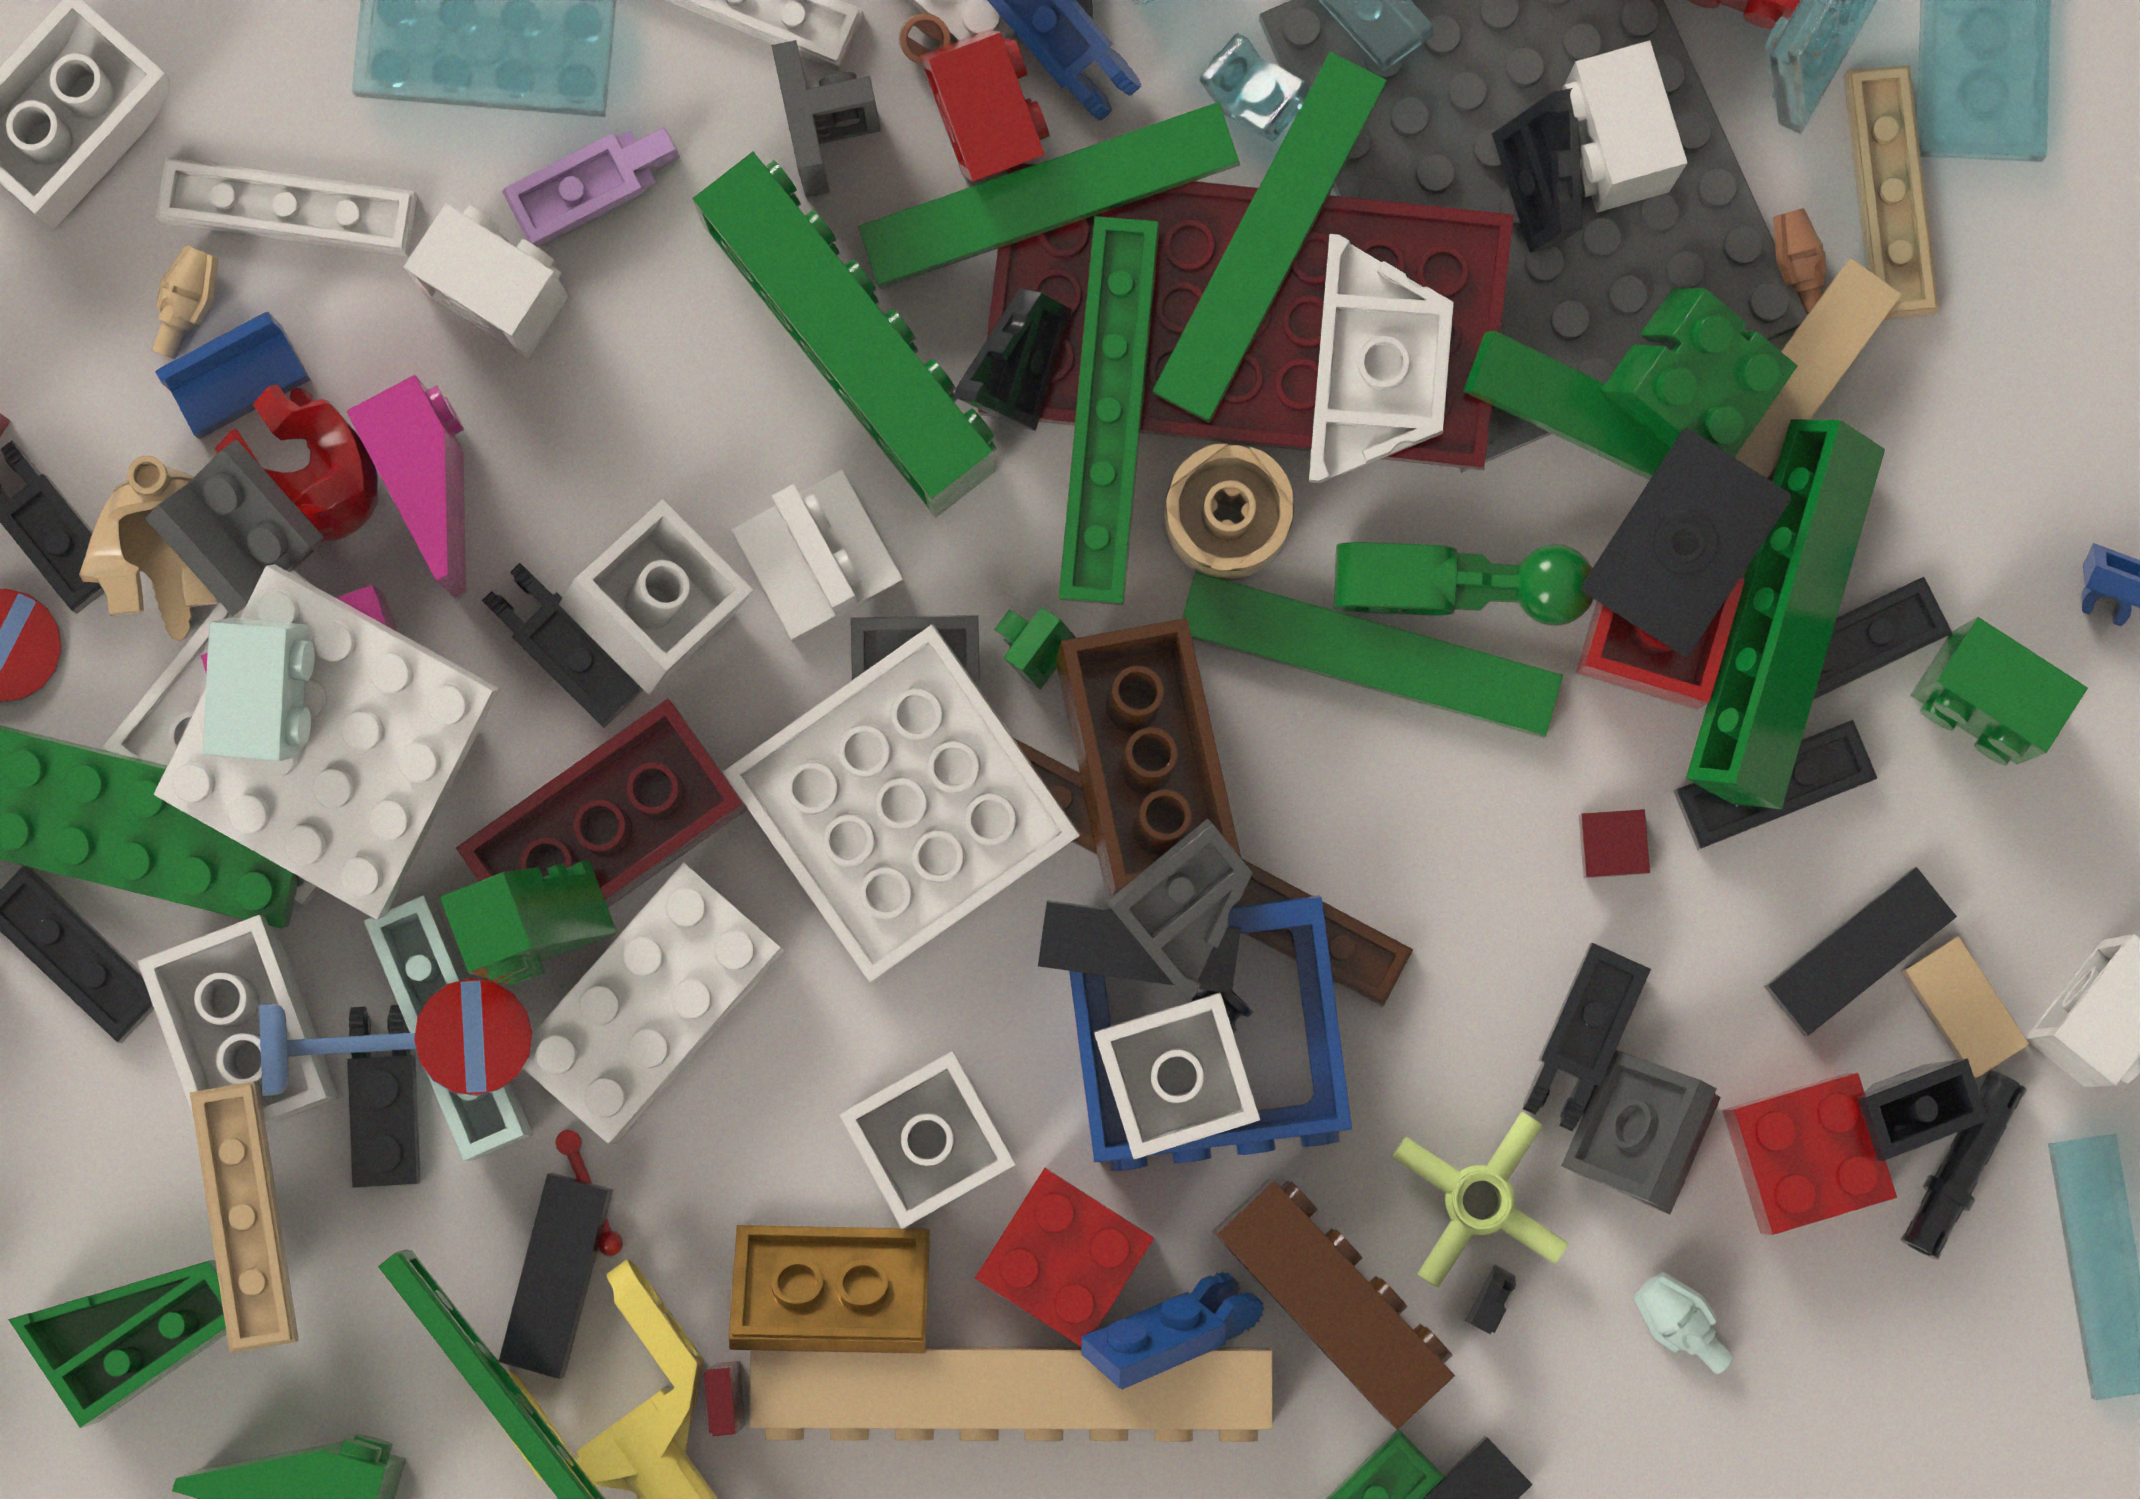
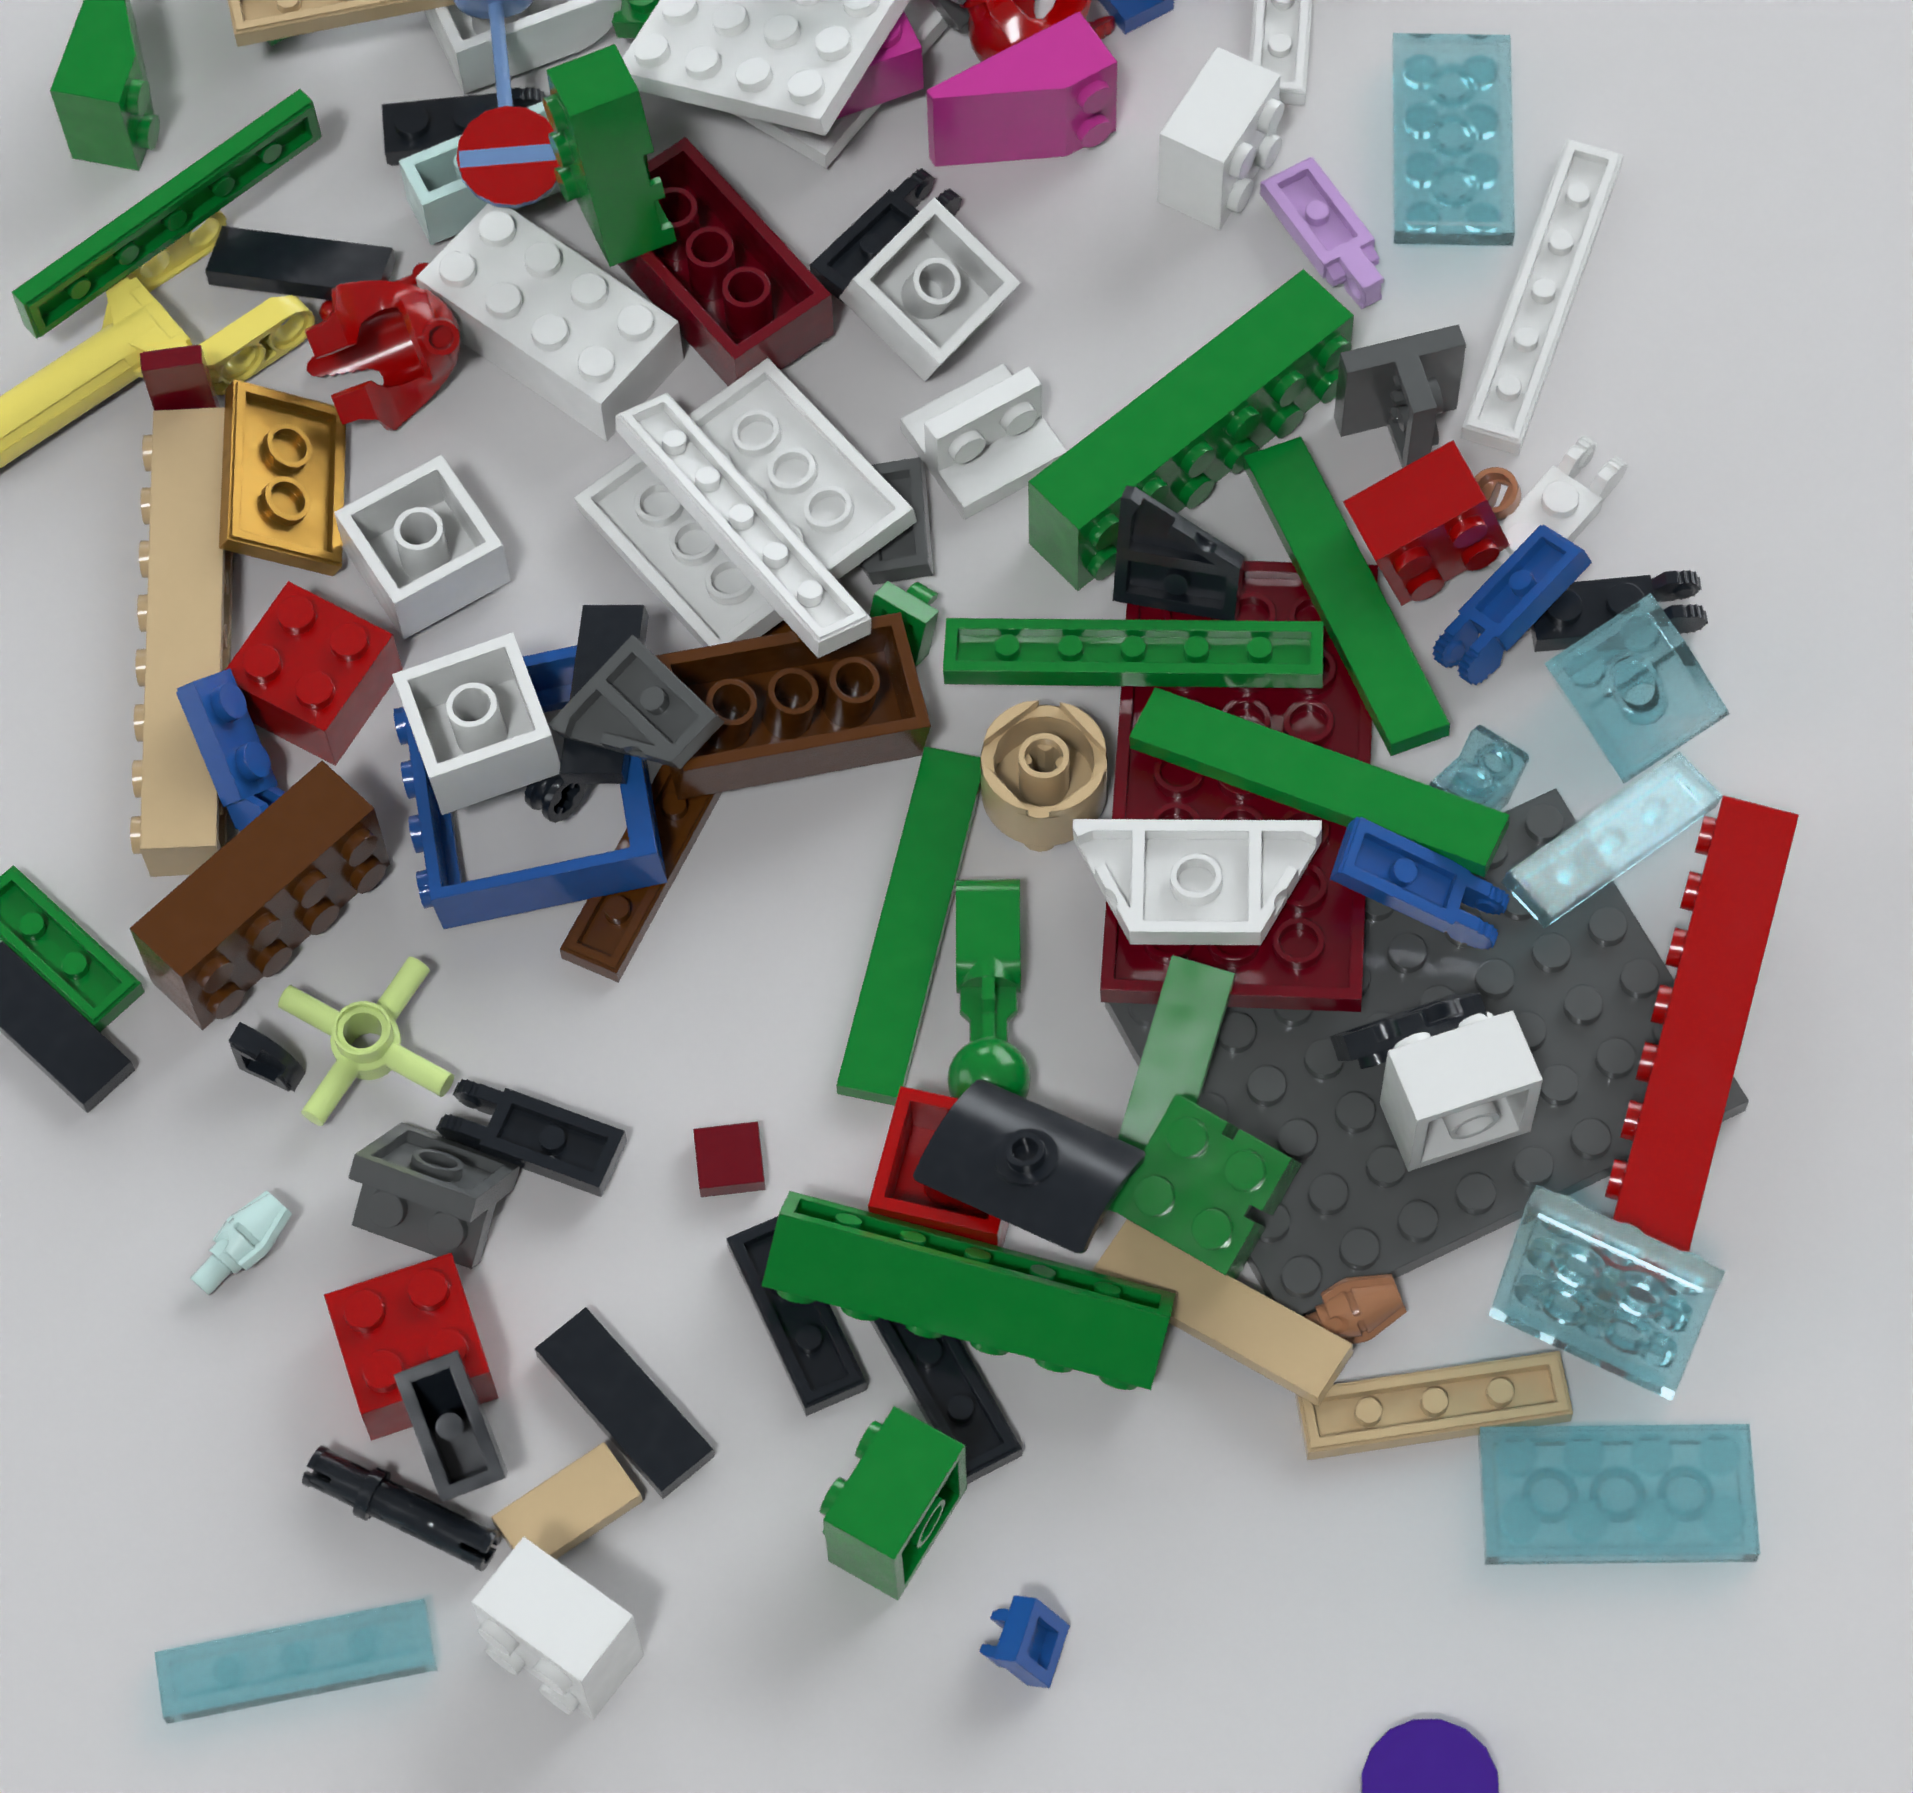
camera: 90 degrees right, 20 degrees down
(671, 1152) = (391, 330): none -> red piece
(943, 801) = (743, 525): none -> white tile
(1388, 155) = (1417, 882): none -> blue hinge

